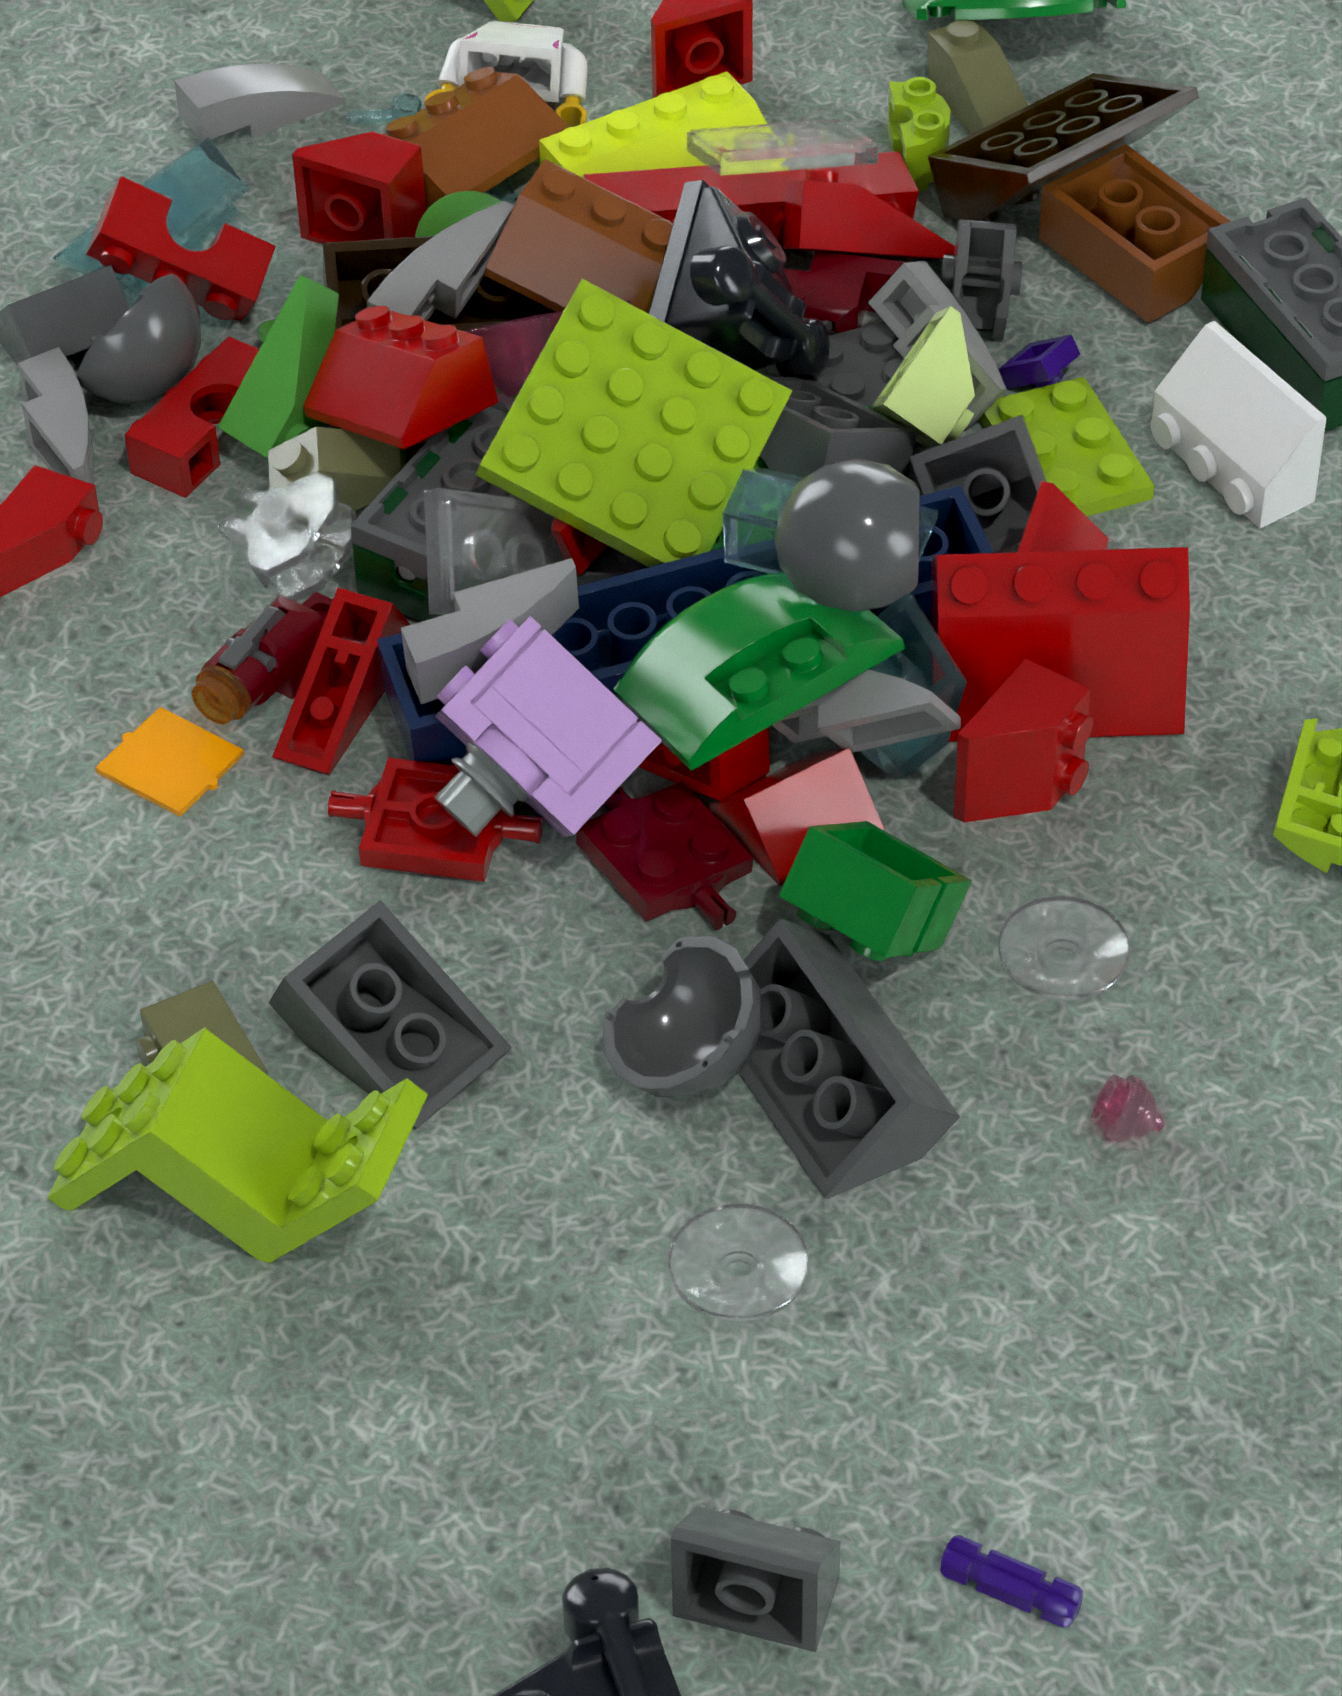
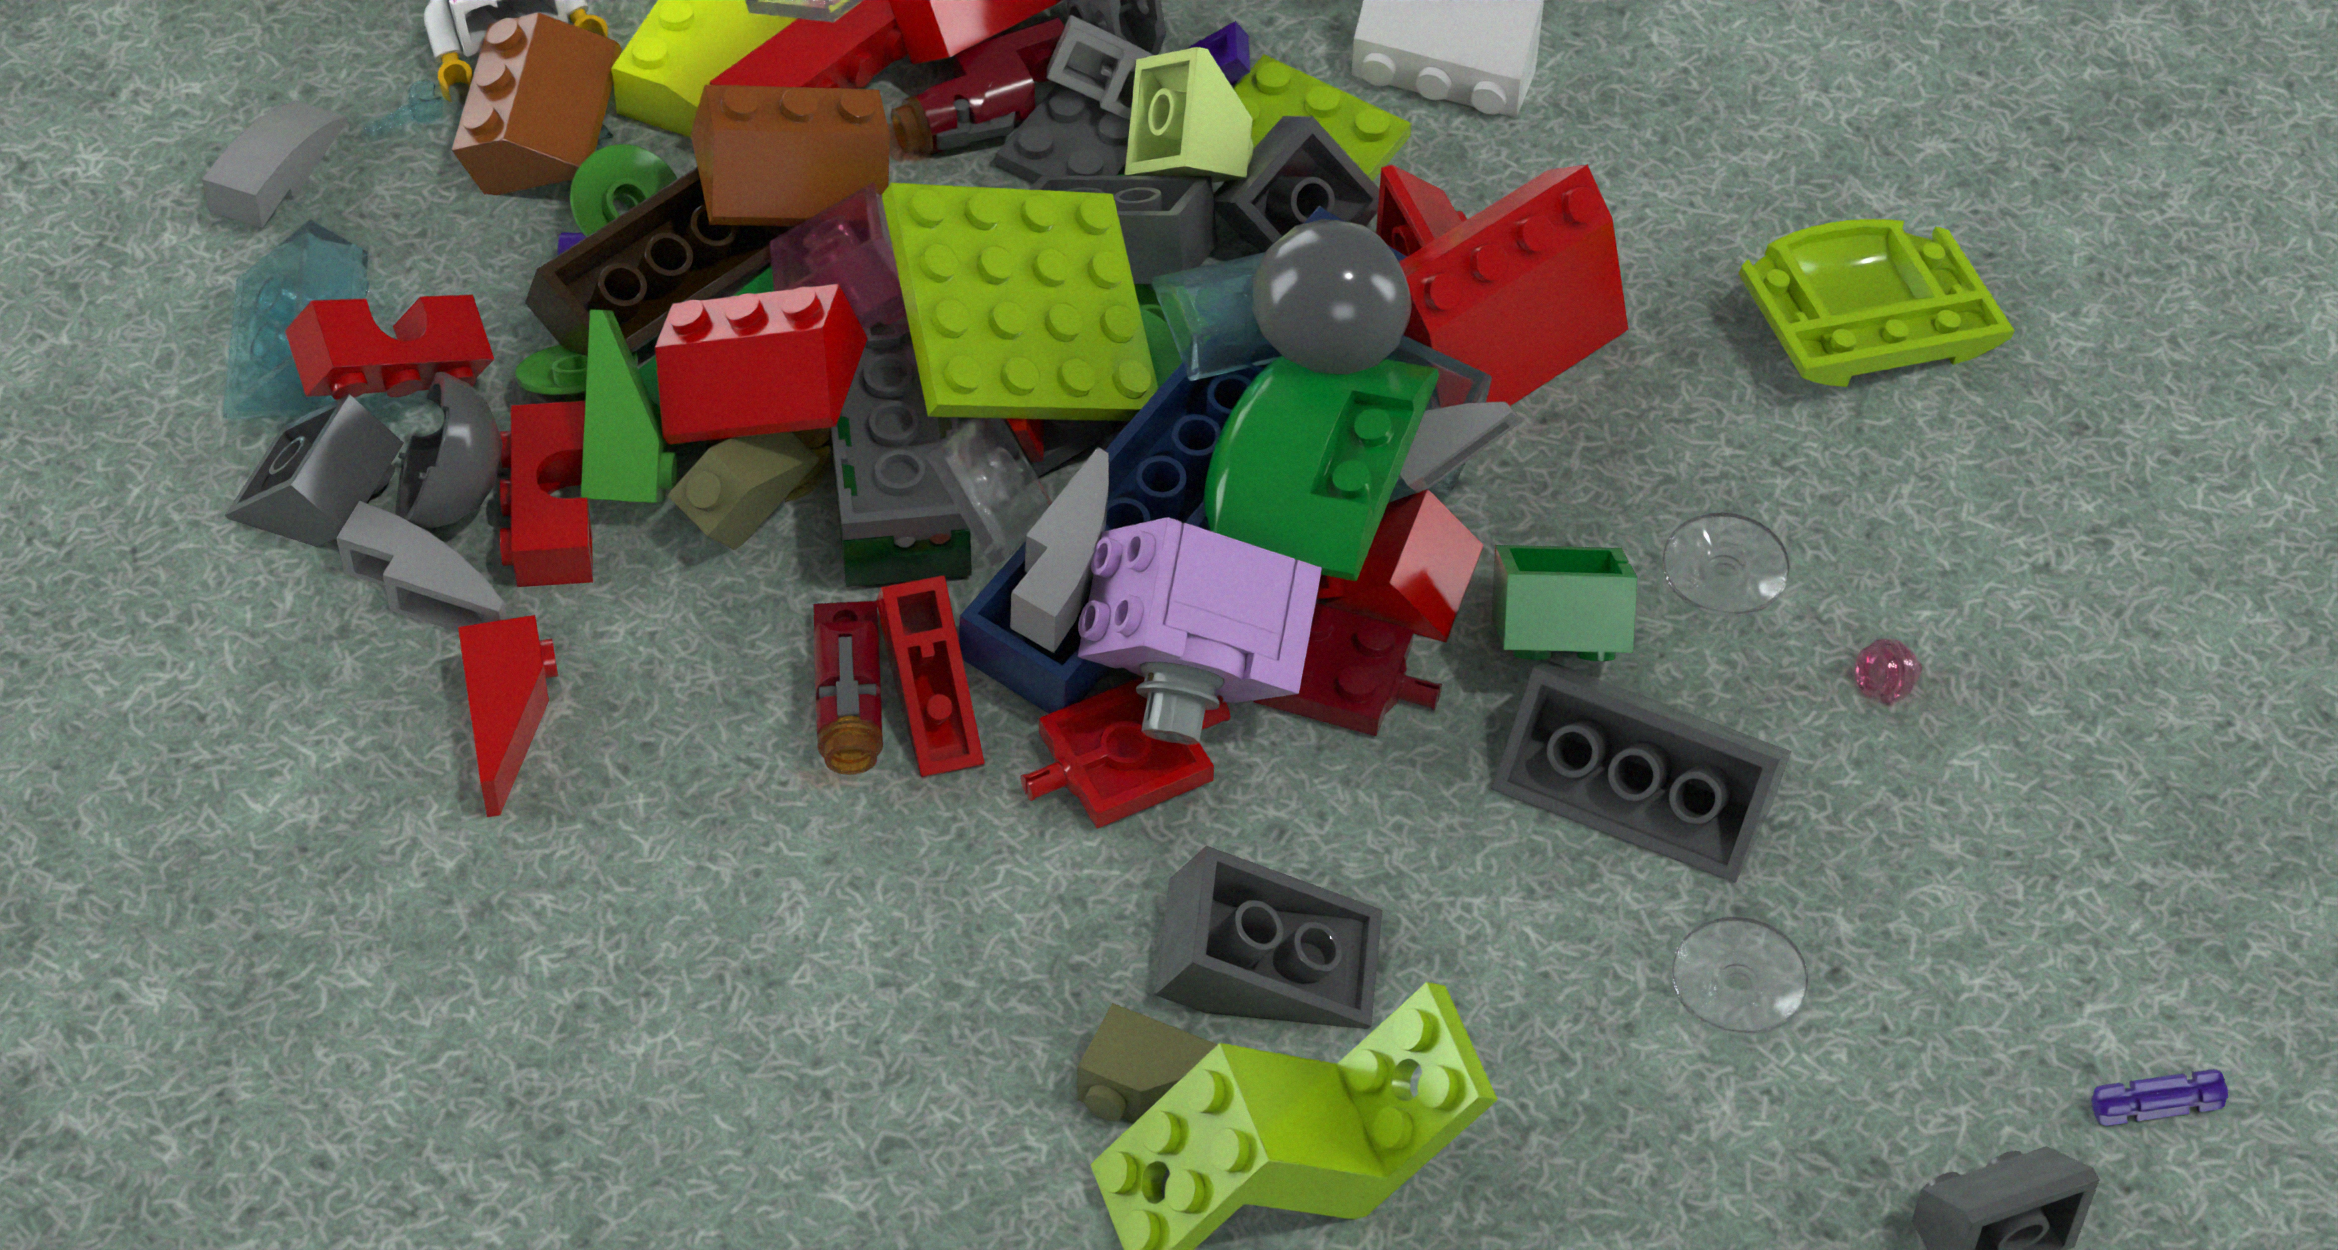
camera: 40 degrees left, 5 degrees up
(169, 761) = (834, 833): light orange piece -> none
(290, 532) = (756, 561): clear hinge -> none
(359, 188) = (495, 205): red slope -> none
(445, 268) = (680, 243): light grey slope -> none
(692, 1027) = (1526, 798): dark grey cylinder -> none
(731, 290) = (950, 124): black piece -> none
(1023, 746) = (1558, 405): red slope -> none

